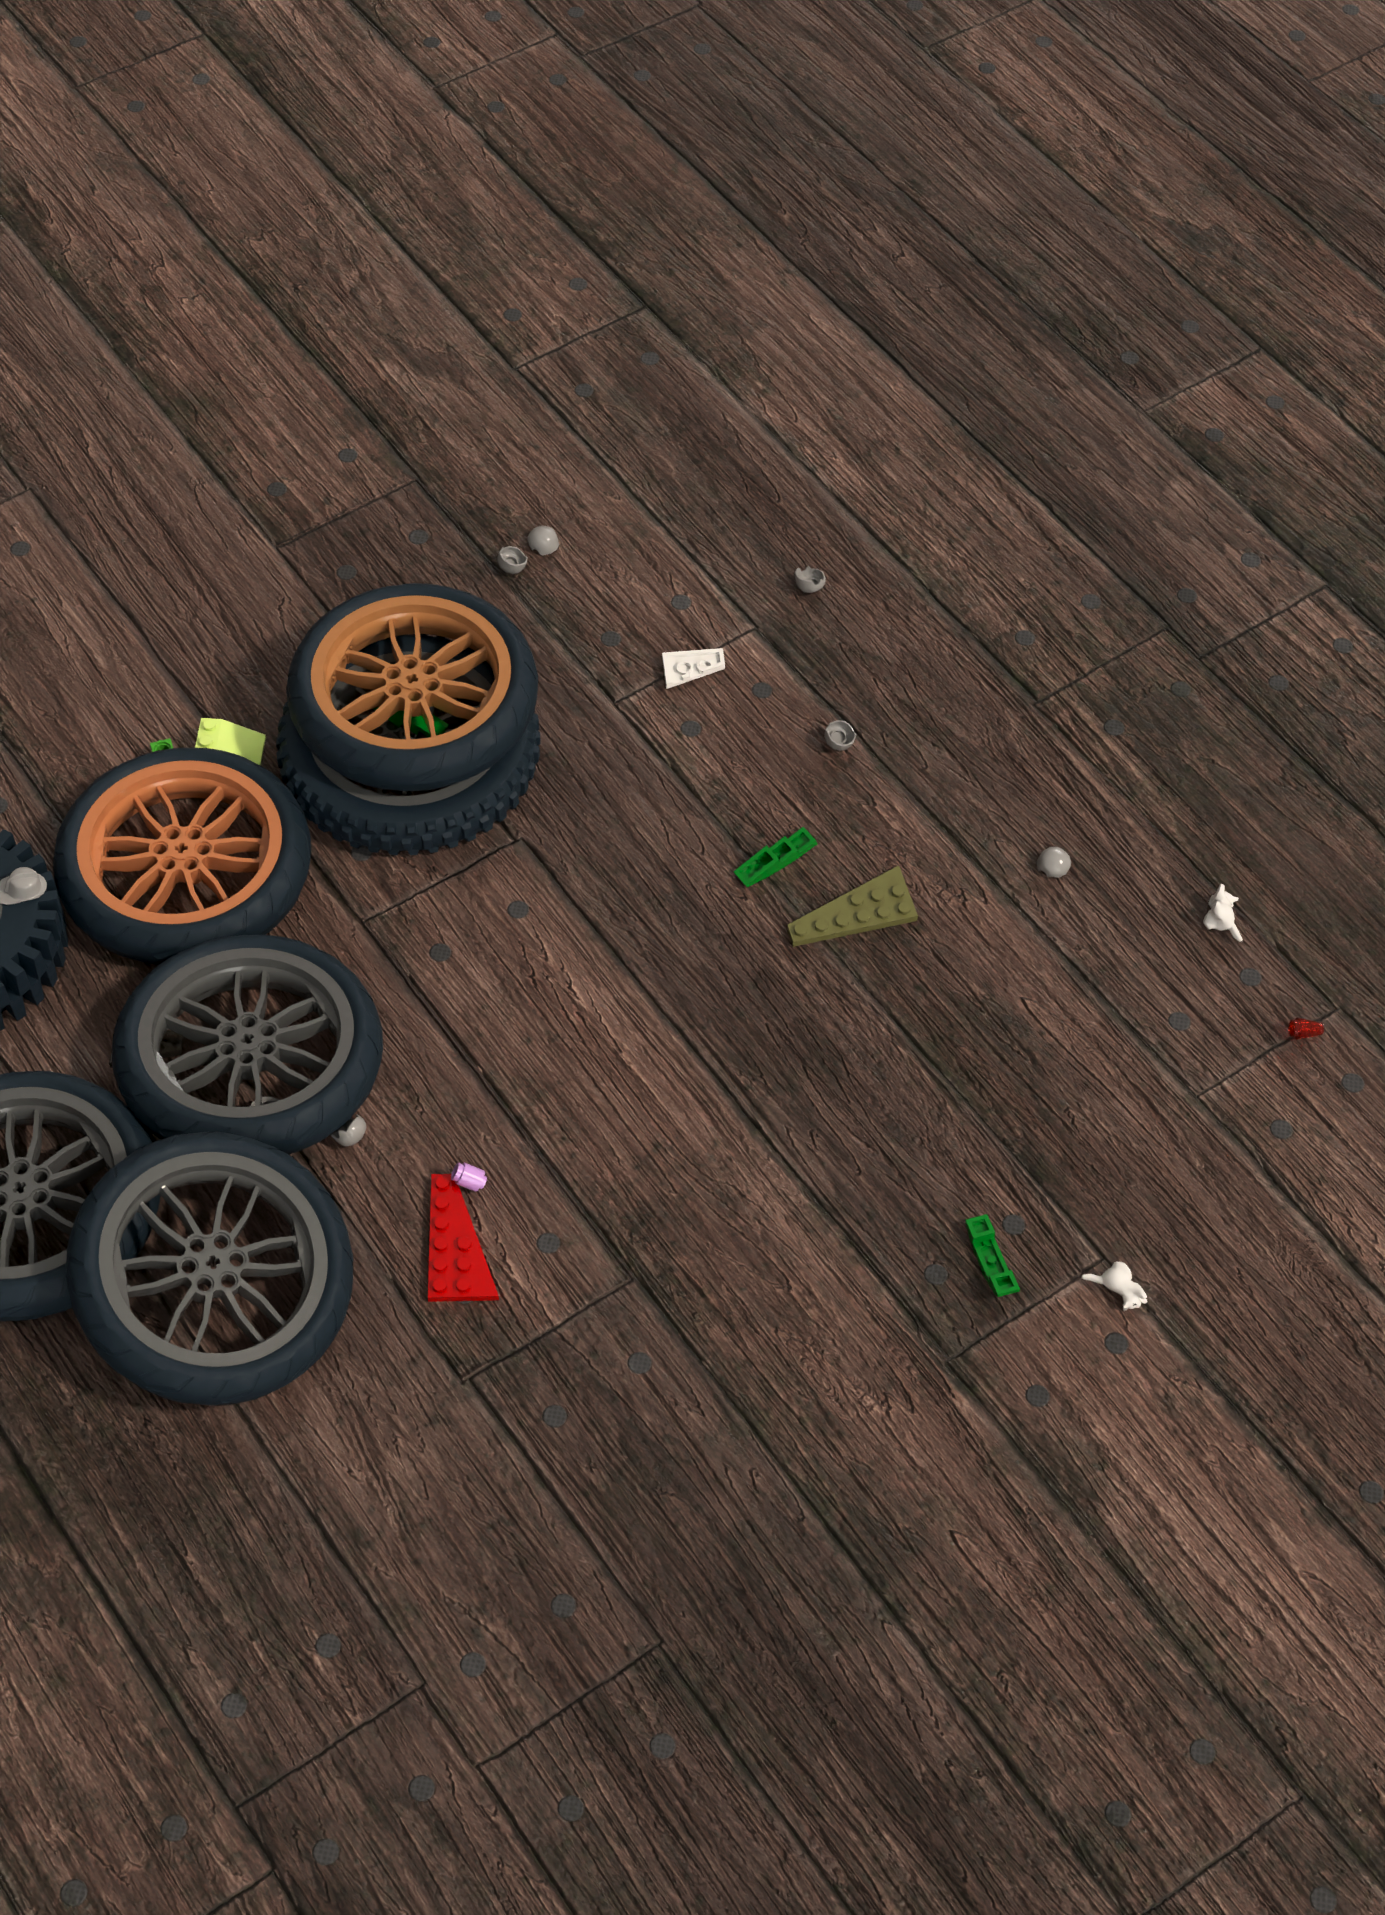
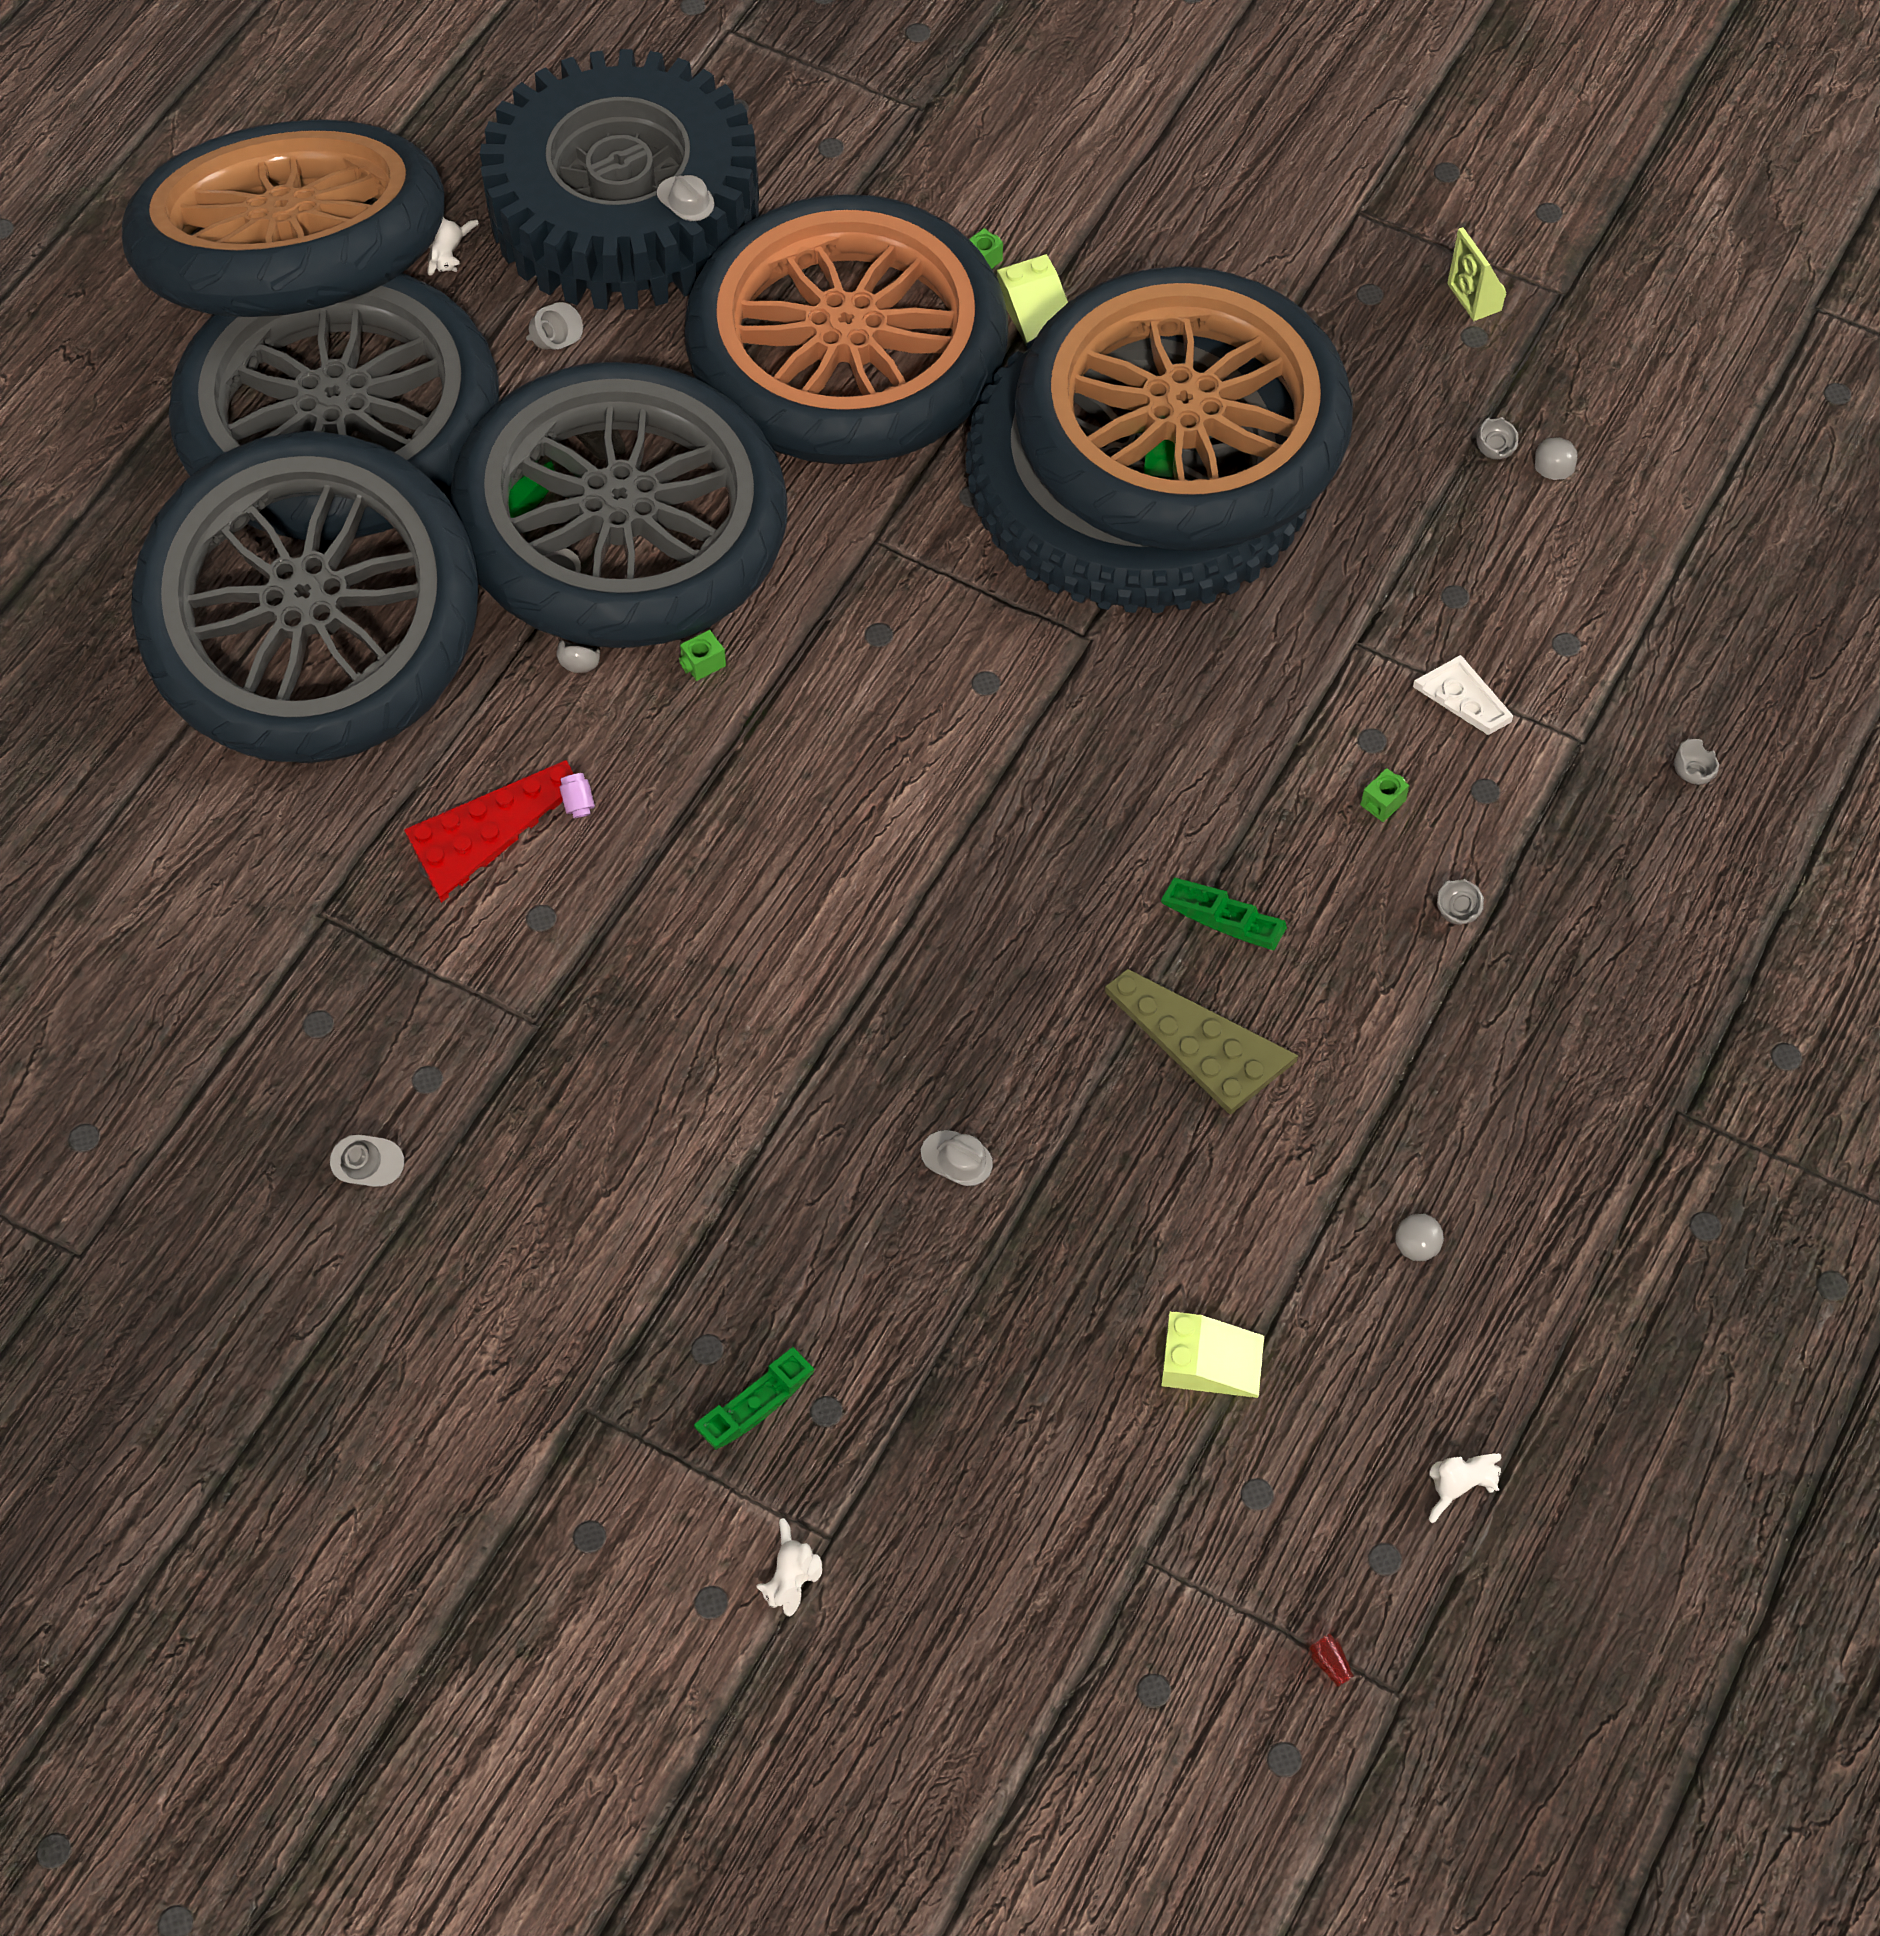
camera: 65 degrees right, 5 degrees up
(45, 1033) = (555, 326): none -> light grey piece
(385, 508) = (1474, 279): none -> yellowish green slope
(397, 1049) = (706, 646): none -> bright green brick
(690, 1420) = (366, 1160): none -> light grey piece
(740, 737) = (1381, 804): none -> bright green brick
(870, 1076) = (957, 1157): none -> light grey piece
(1080, 1003) = (1211, 1356): none -> yellowish green slope

